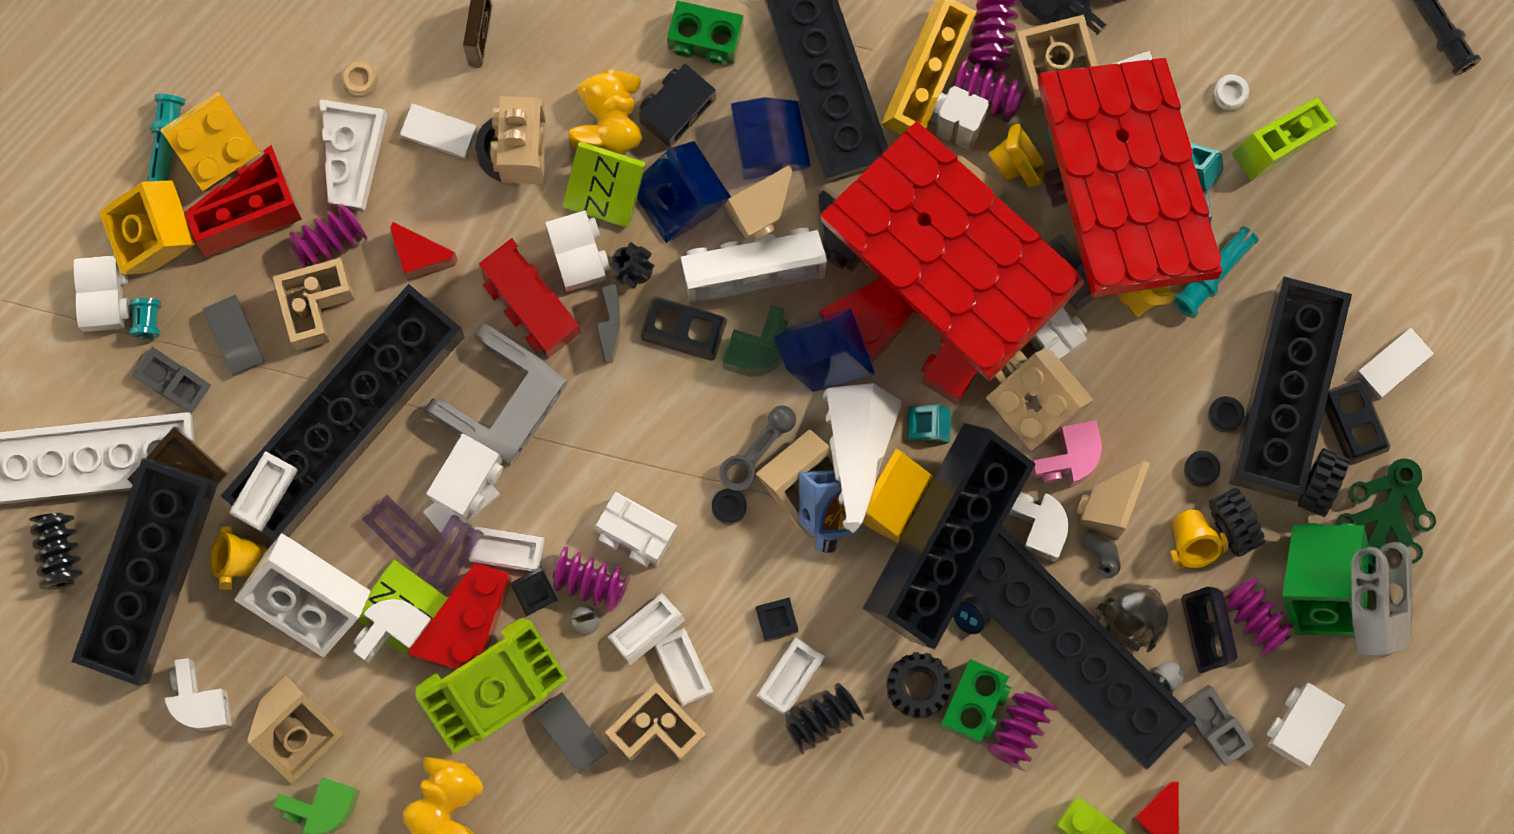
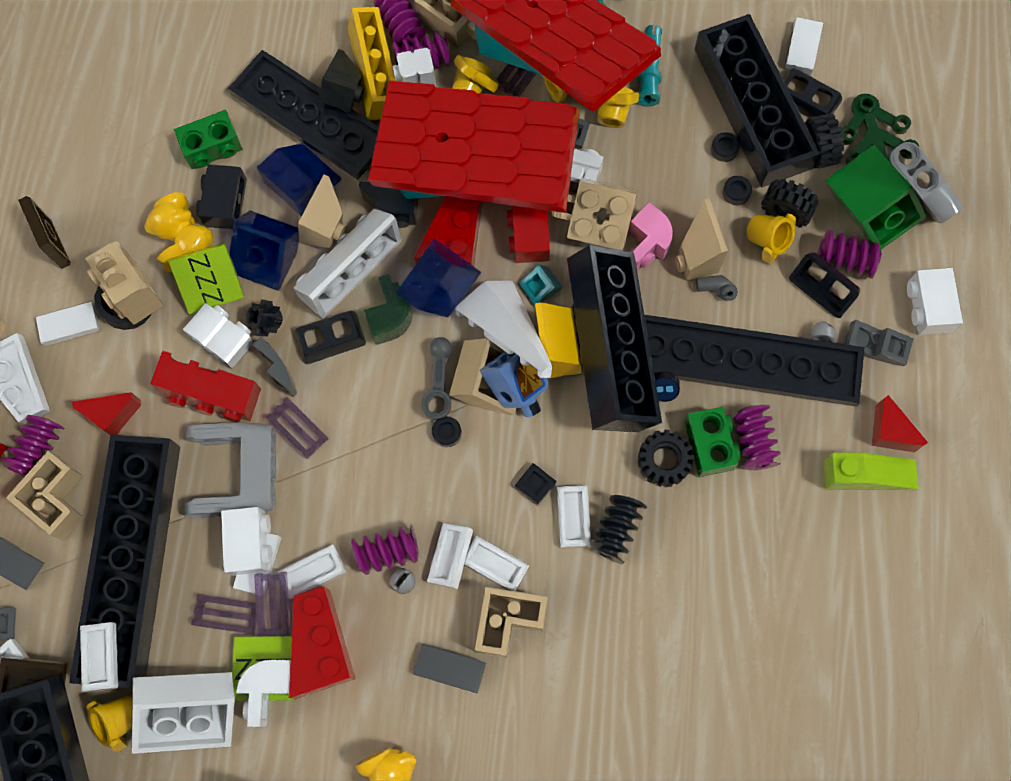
camera: 30 degrees left, 5 degrees down
(491, 687) = (368, 678): lime plate -> none
(533, 591) = (351, 587): black tile -> none
(584, 369) = (280, 411): none -> clear purple tile
(635, 530) = (393, 493): white brick -> none
(880, 68) = (341, 83): none -> pearl dark grey slope
(1048, 525) = (670, 294): white brick -> none
(1134, 615) = (772, 309): clear smoke cylinder -> none

